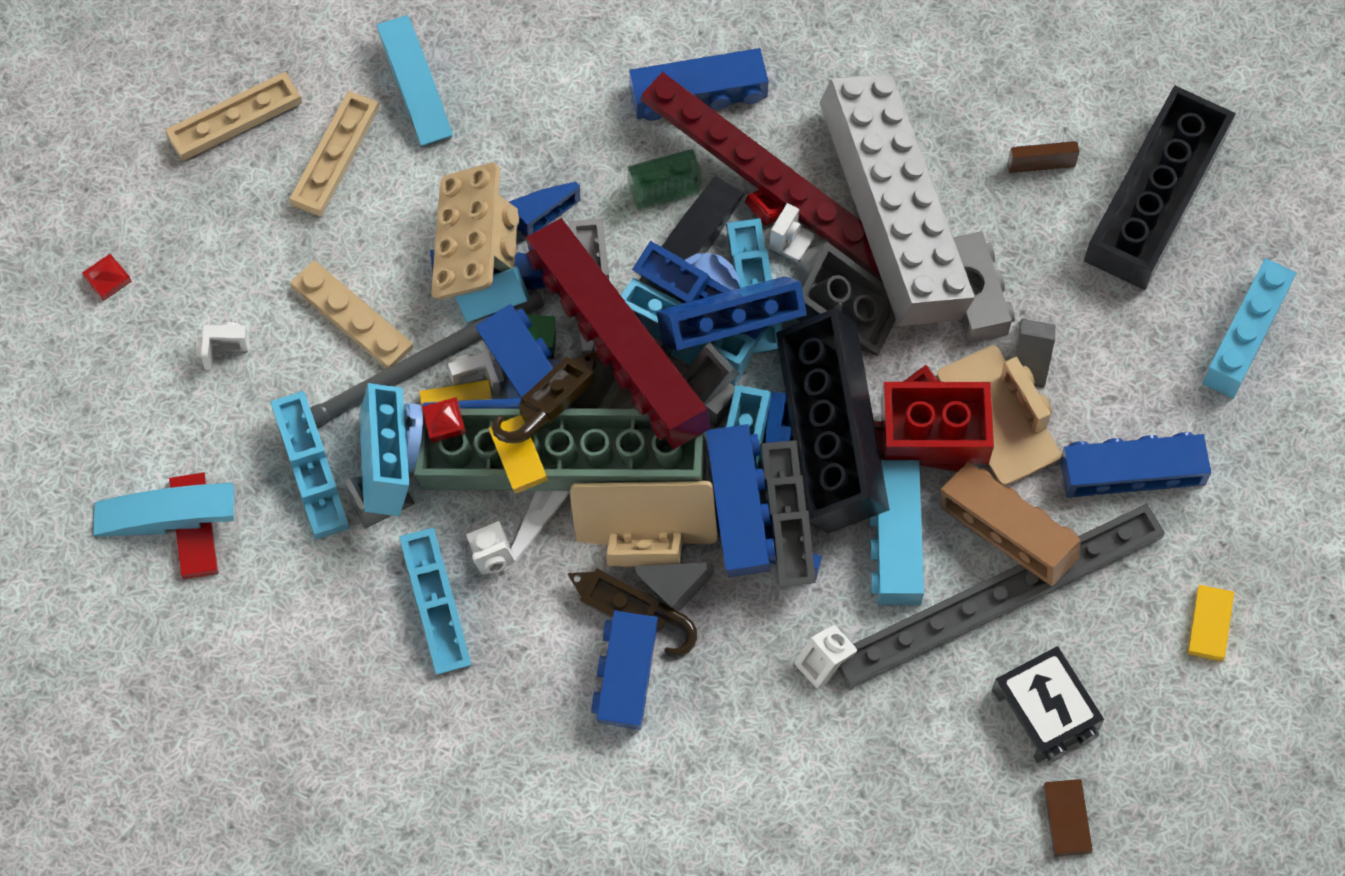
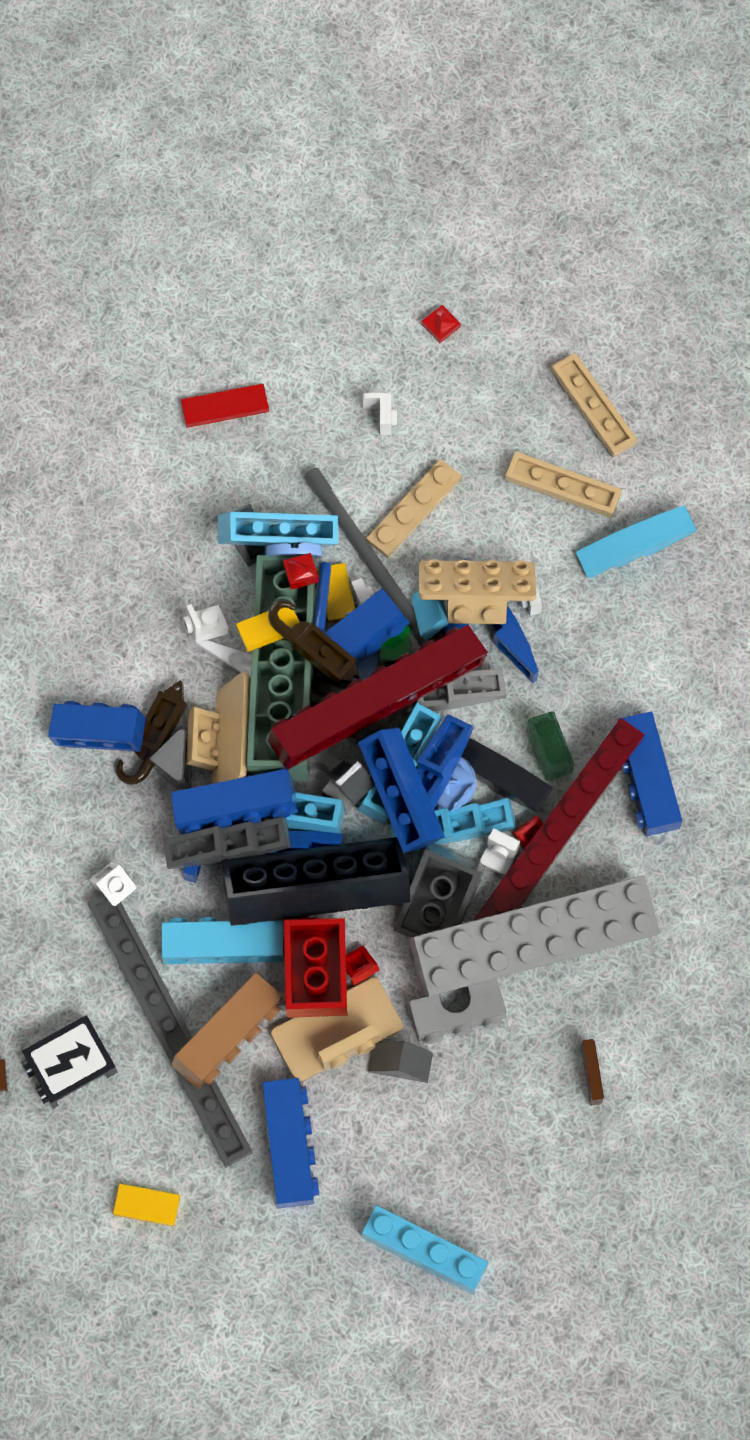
camera: 90 degrees right, 5 degrees up
(164, 510) = (233, 382): medium azure slope -> none
(309, 465) = (277, 482): medium azure slope -> none
(435, 601) = (161, 584): medium azure slope -> none
(1159, 187) = (563, 1173): black brick -> none

